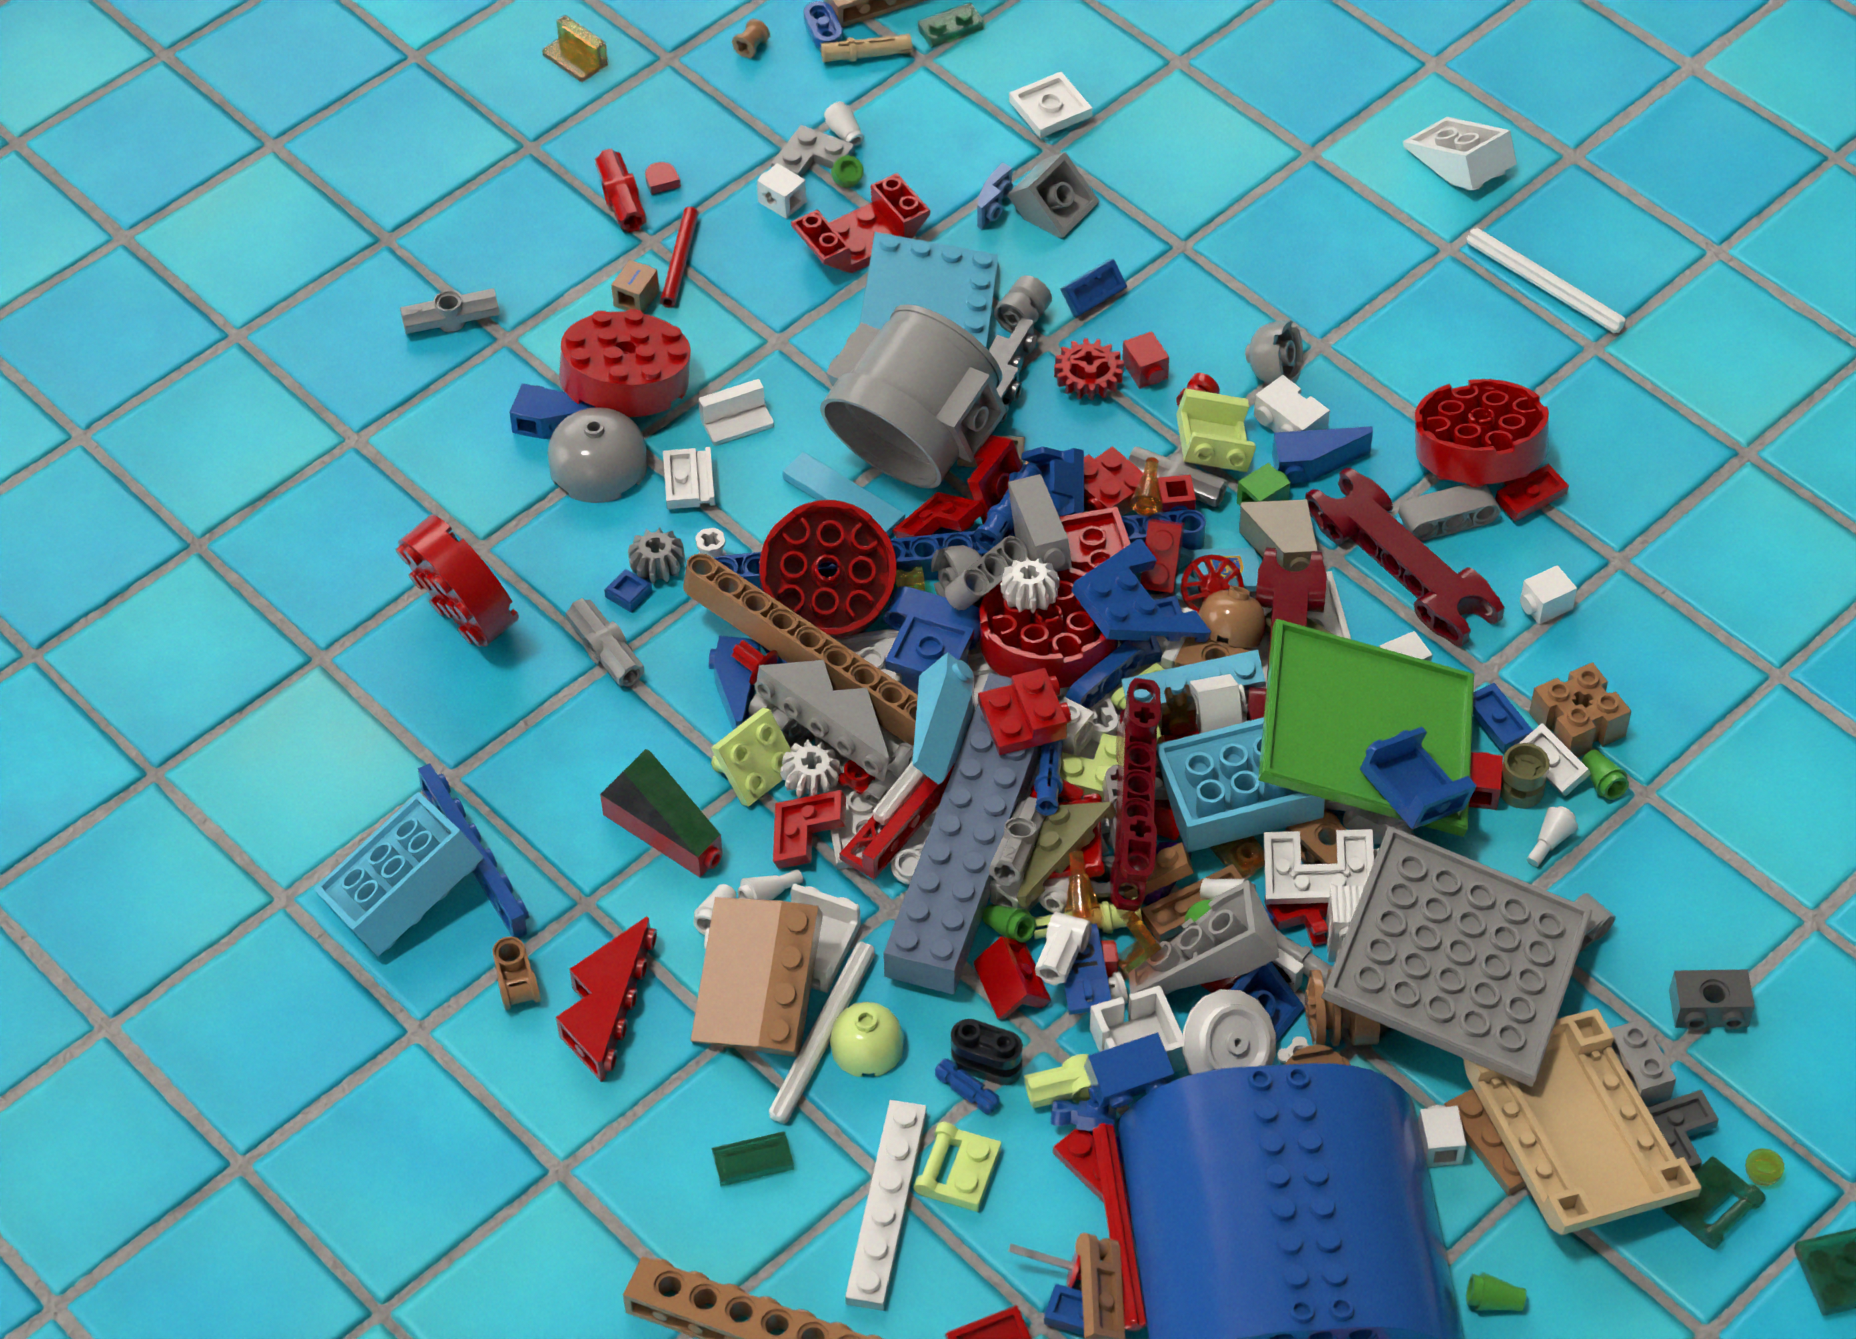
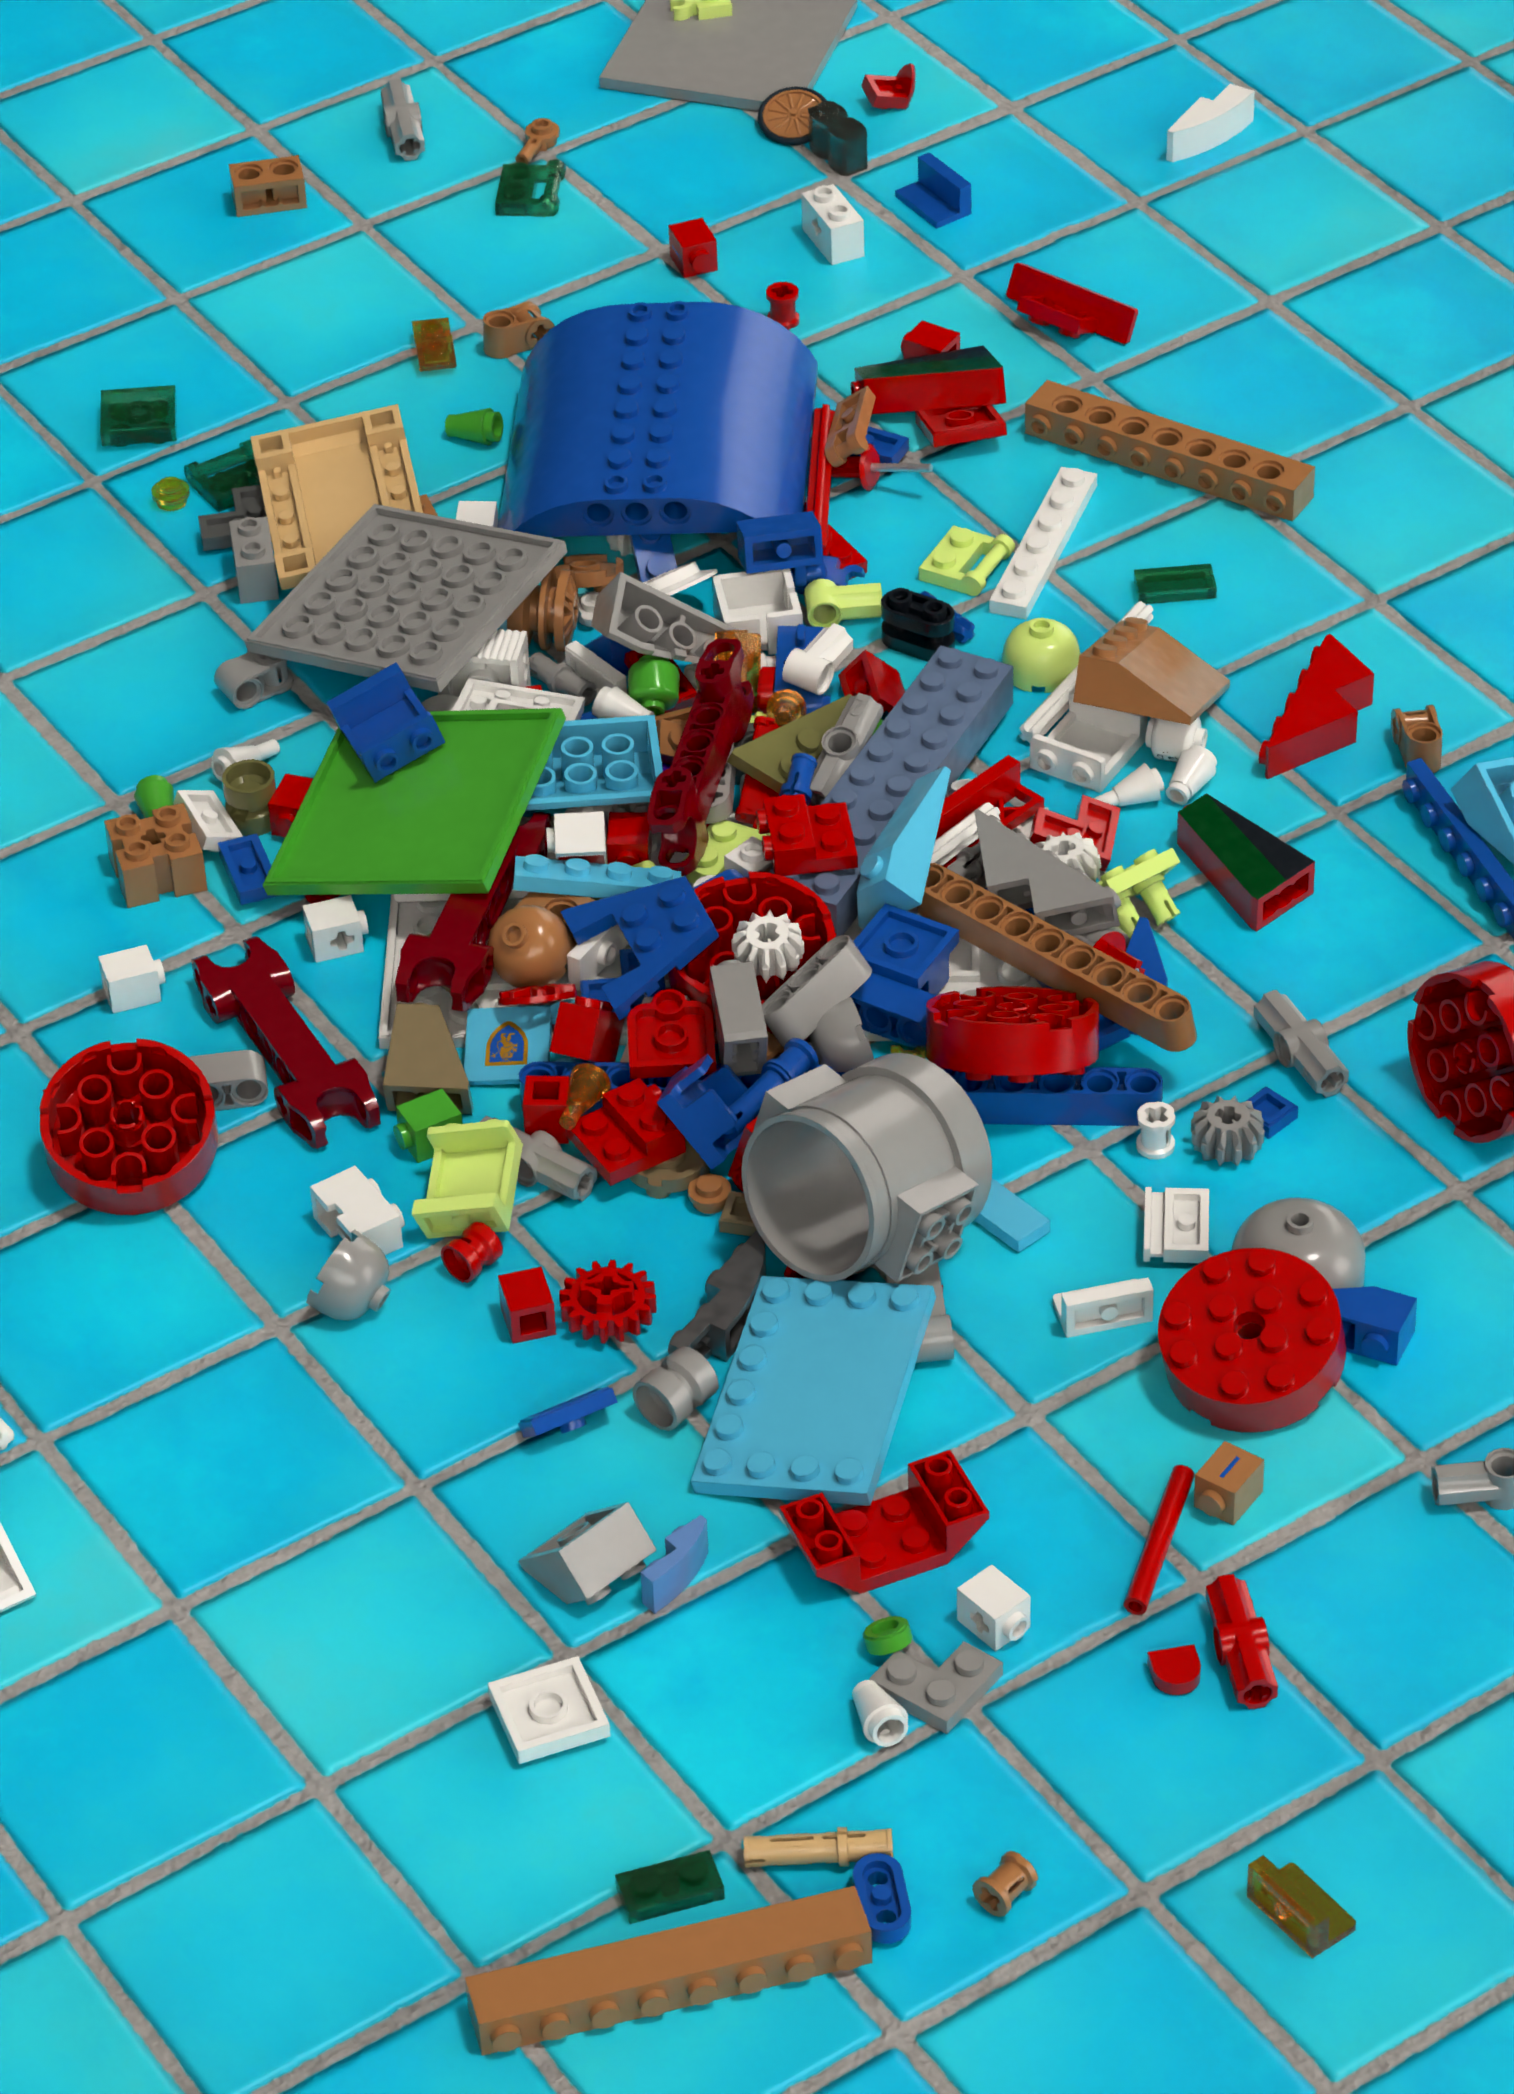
camera: 170 degrees left, 10 degrees down
(1178, 712) = (628, 819): dark brown plate -> none
(1314, 453) = (373, 1152): blue slope -> none
(1727, 988) = (151, 607): dark grey brick -> none

